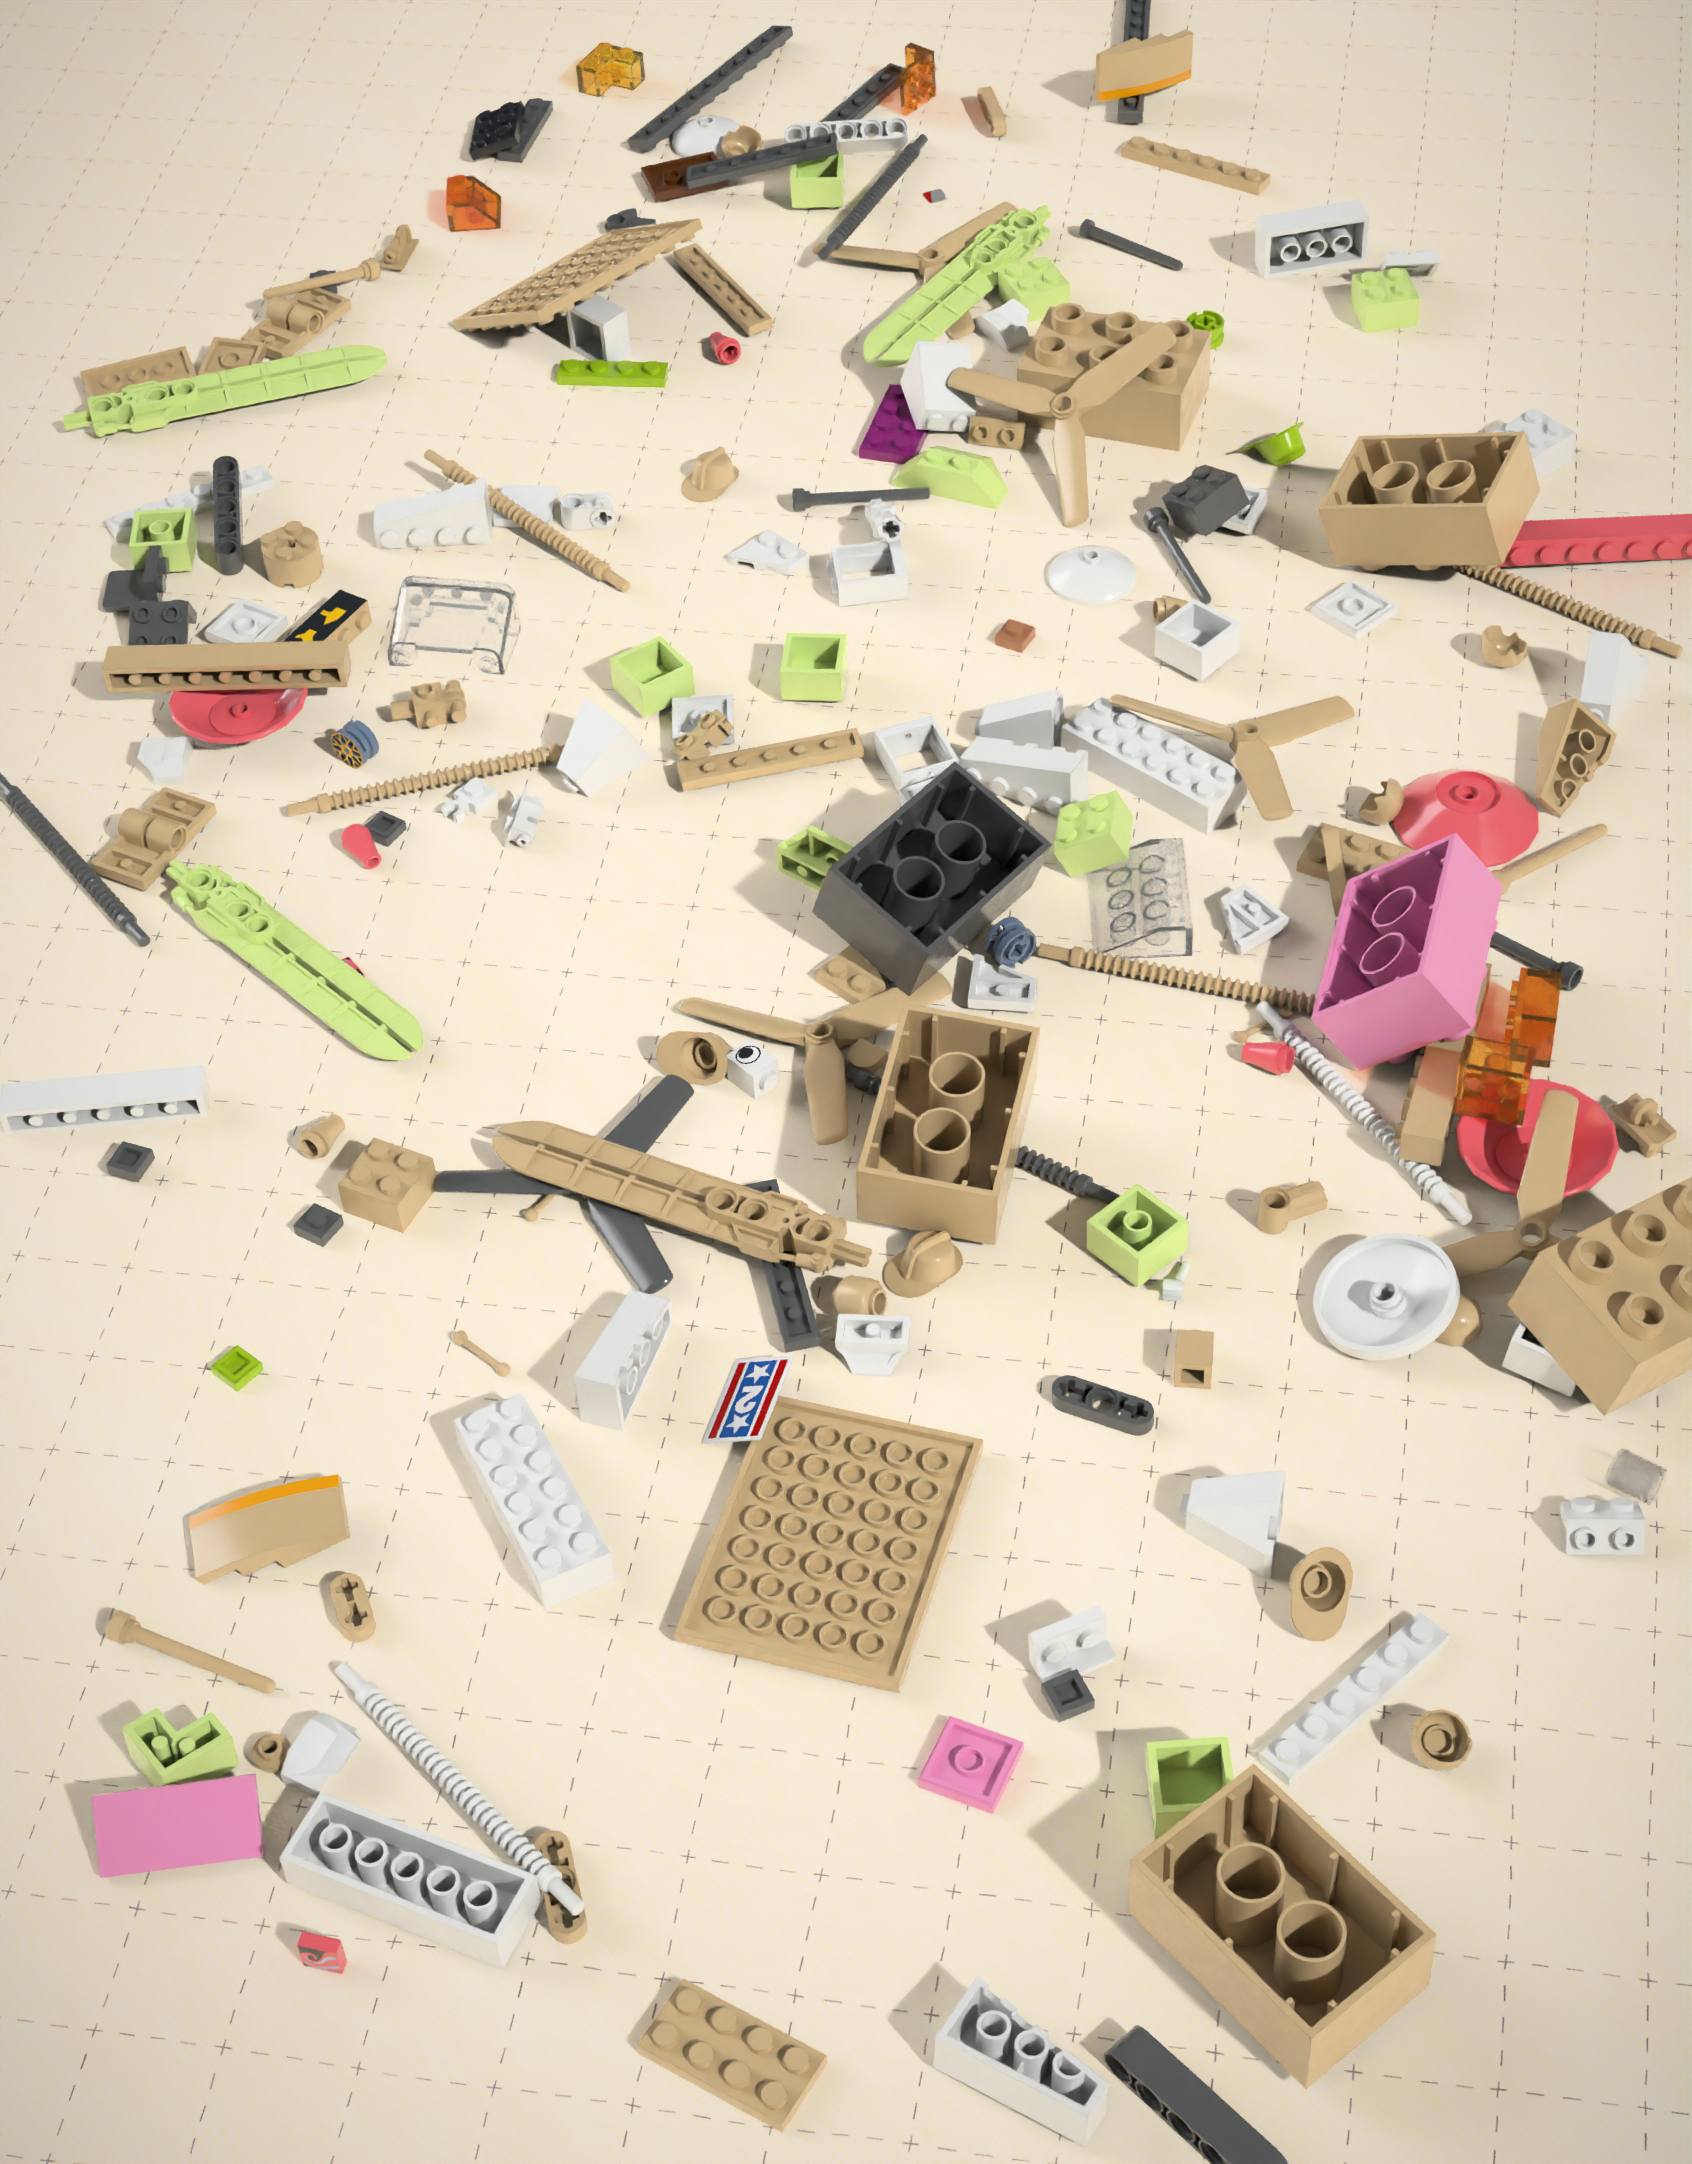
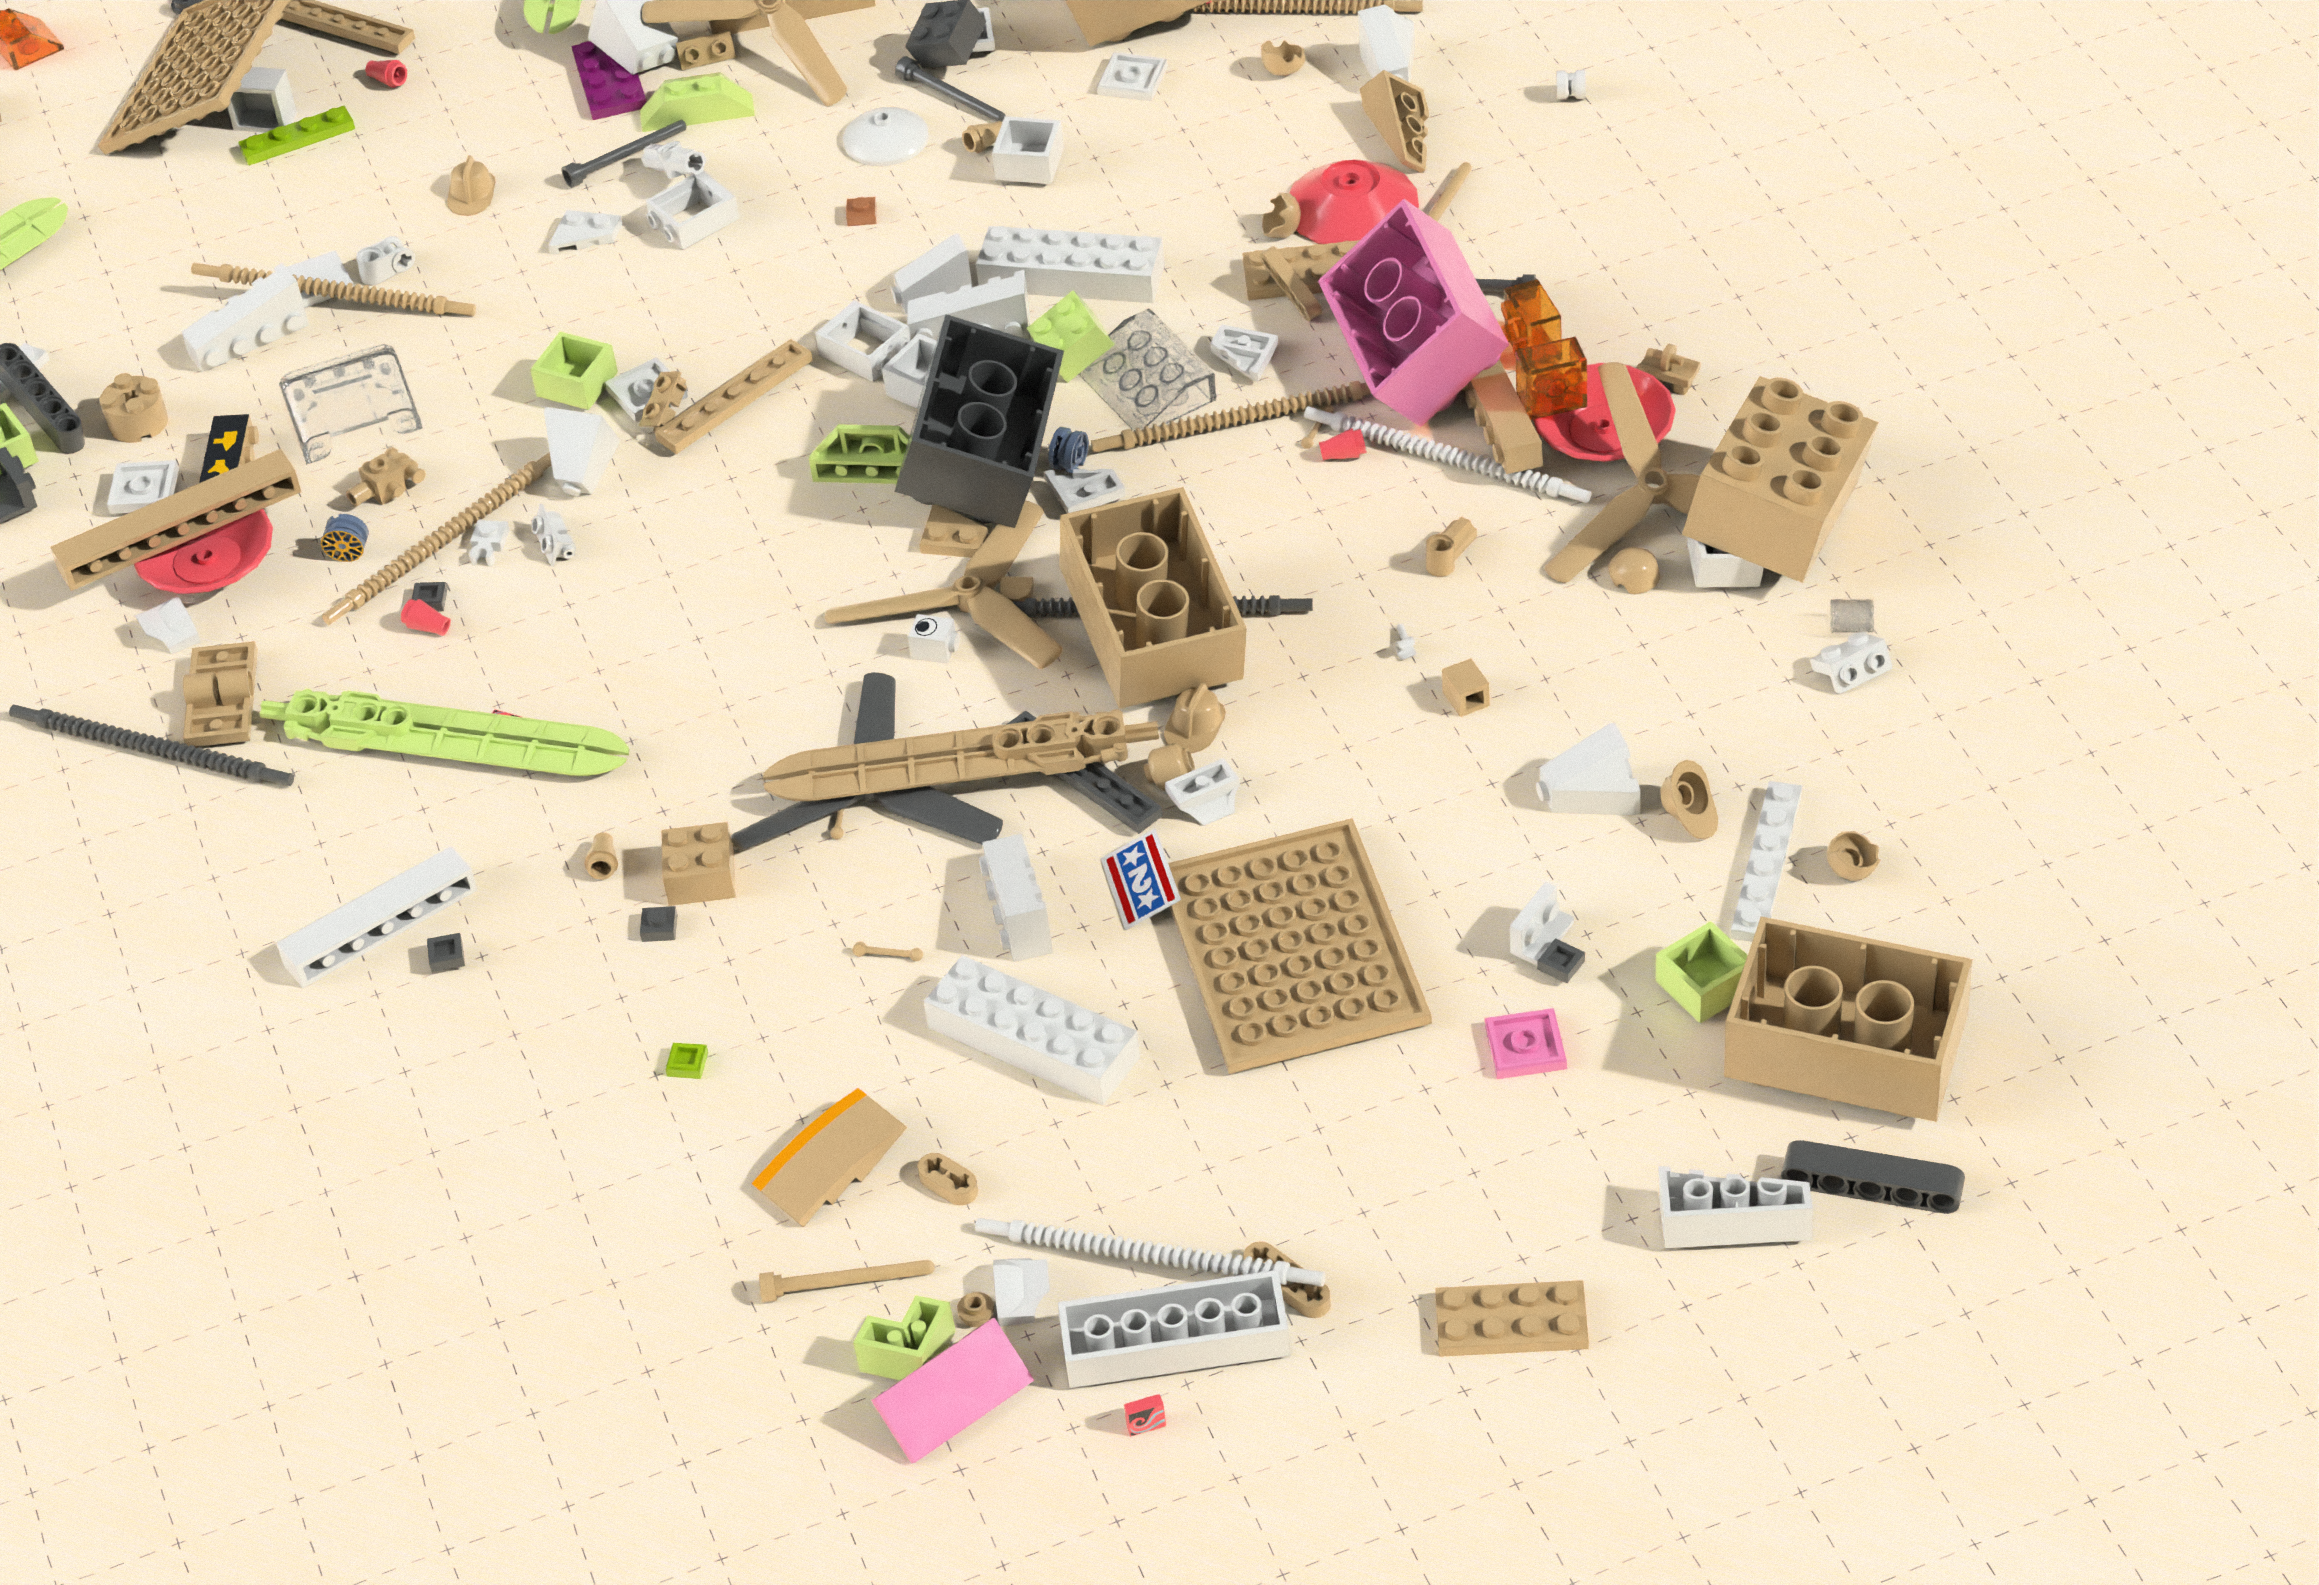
camera: 30 degrees left, 0 degrees up
(160, 622) = (56, 518): dark grey bracket -> none
(694, 1056) = (878, 649): tan piece -> none
(814, 667) = (714, 304): yellowish green piece -> none
(1109, 1418) = (1440, 742): dark grey beam -> none
(1137, 1235) = (1353, 618): yellowish green brick -> none
(1252, 742) = (1146, 210): tan piece -> none
(1386, 1296) = (1577, 575): white dish -> none

